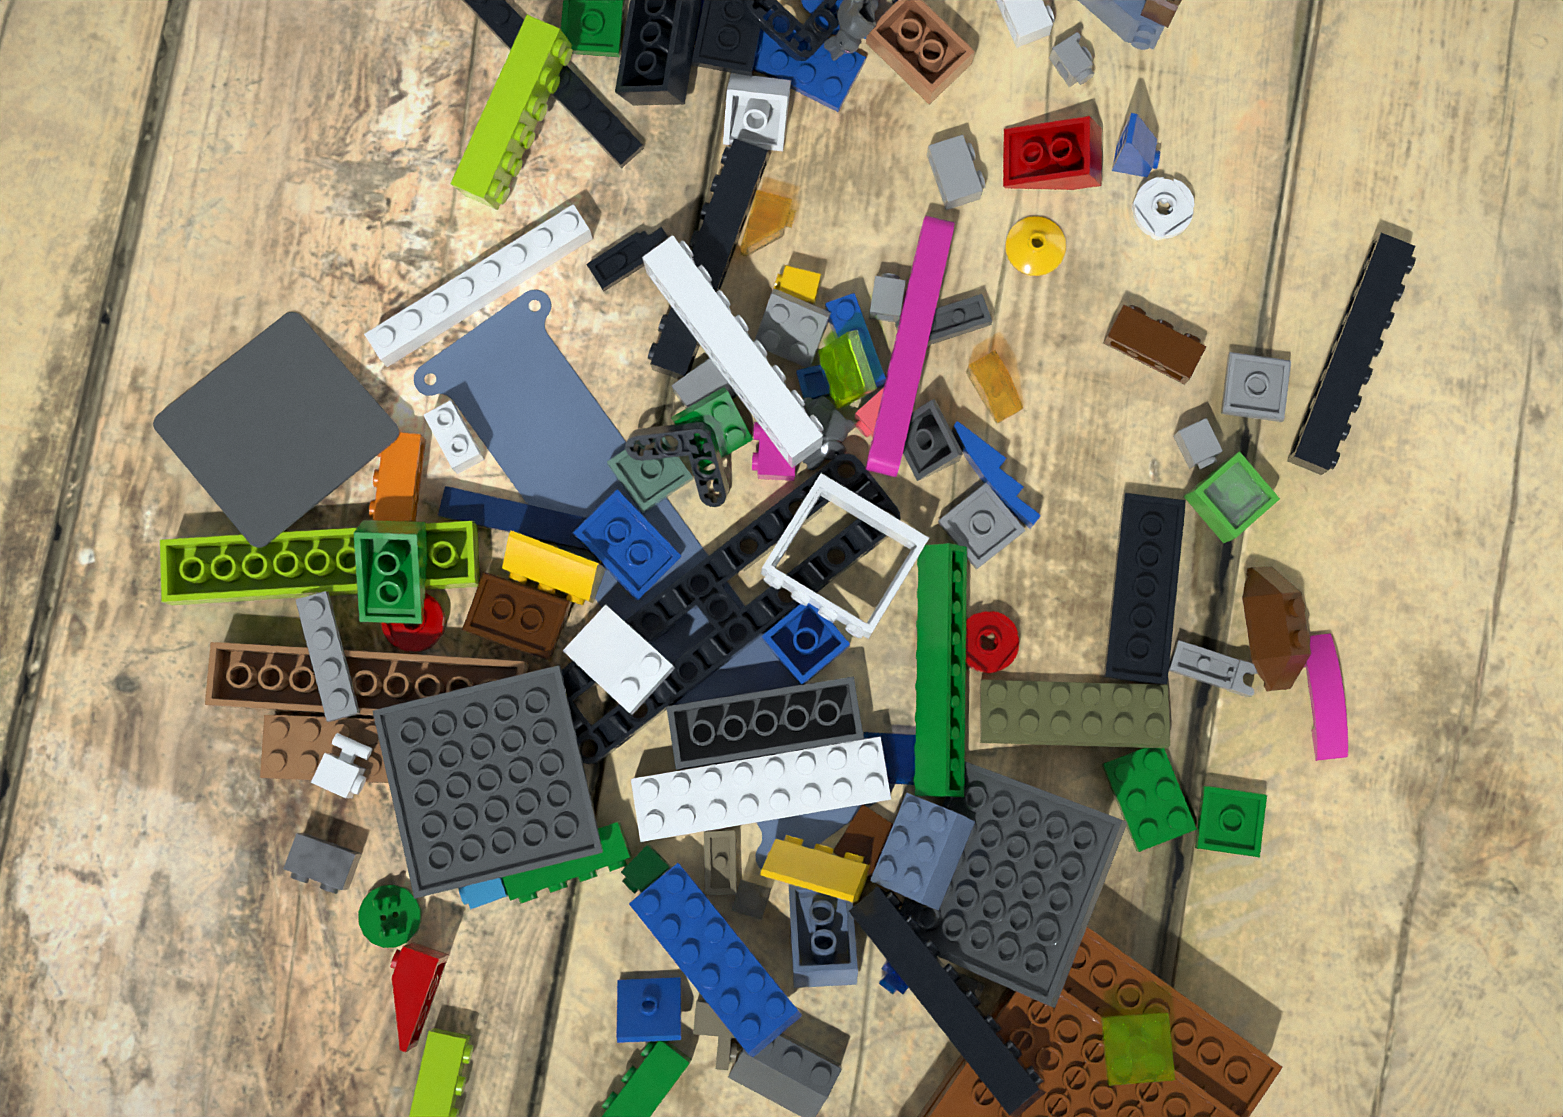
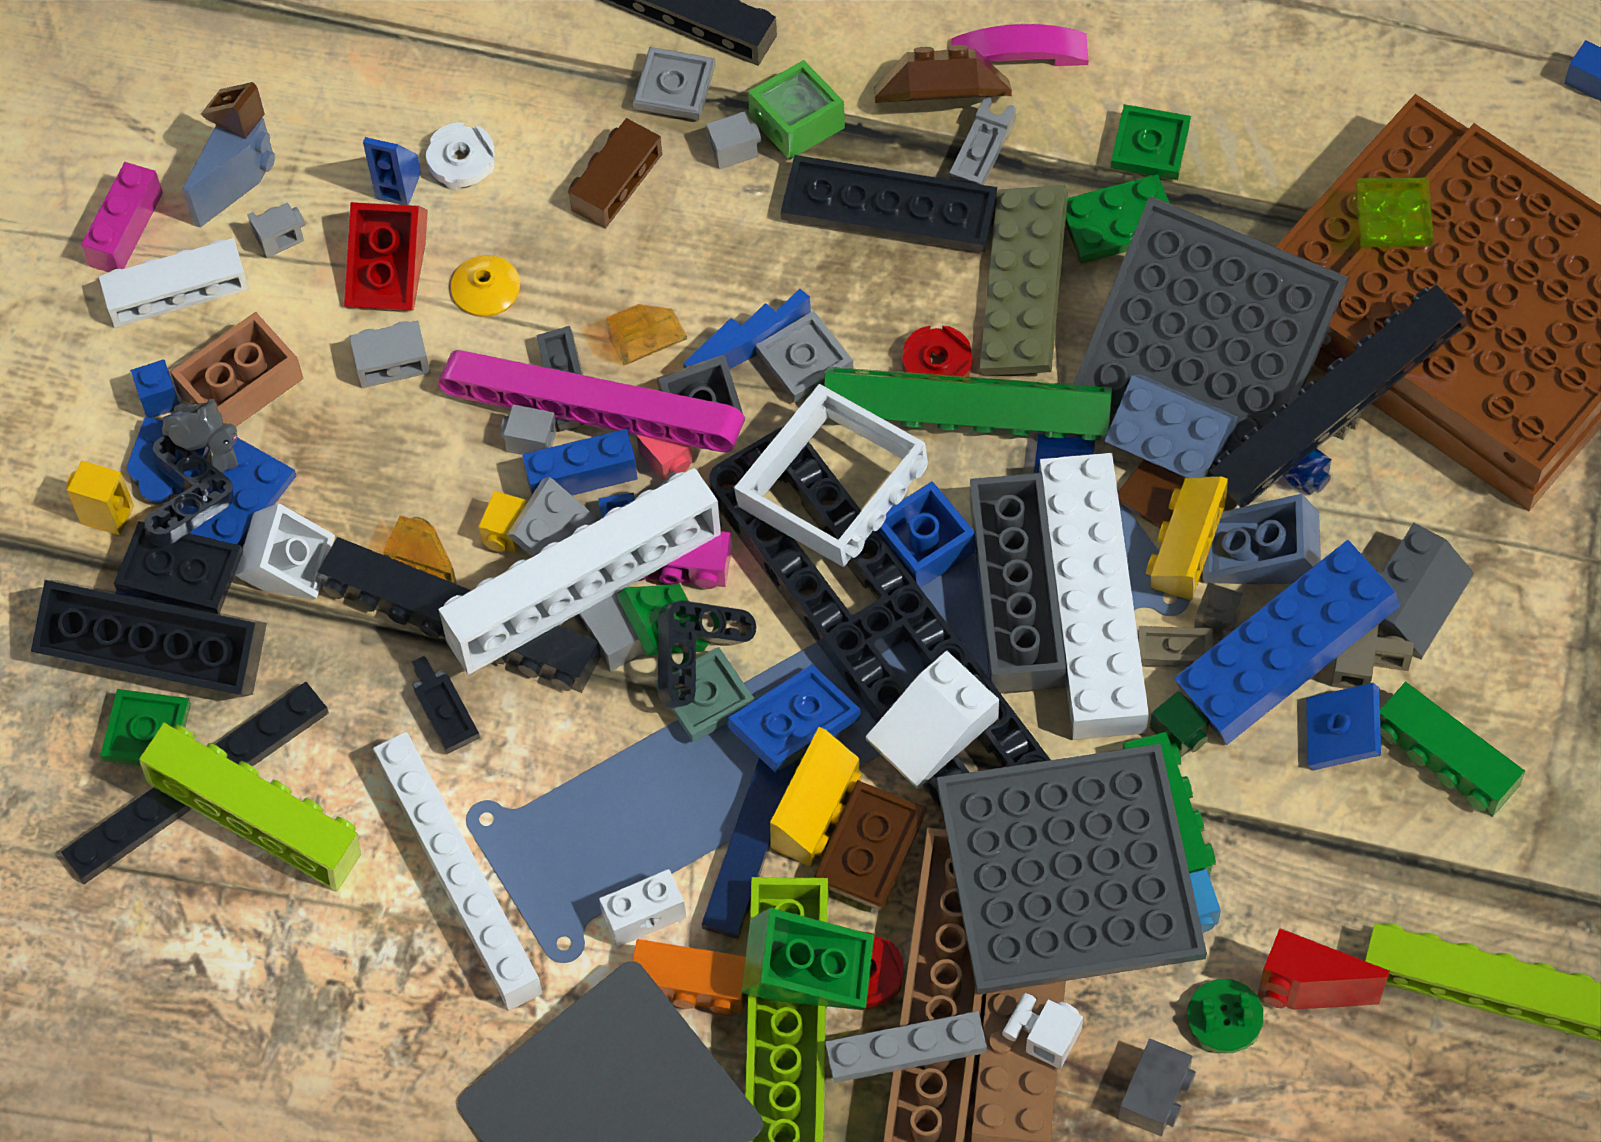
camera: 85 degrees left, 20 degrees down
(847, 369) = (612, 463): clear neon green plate -> none

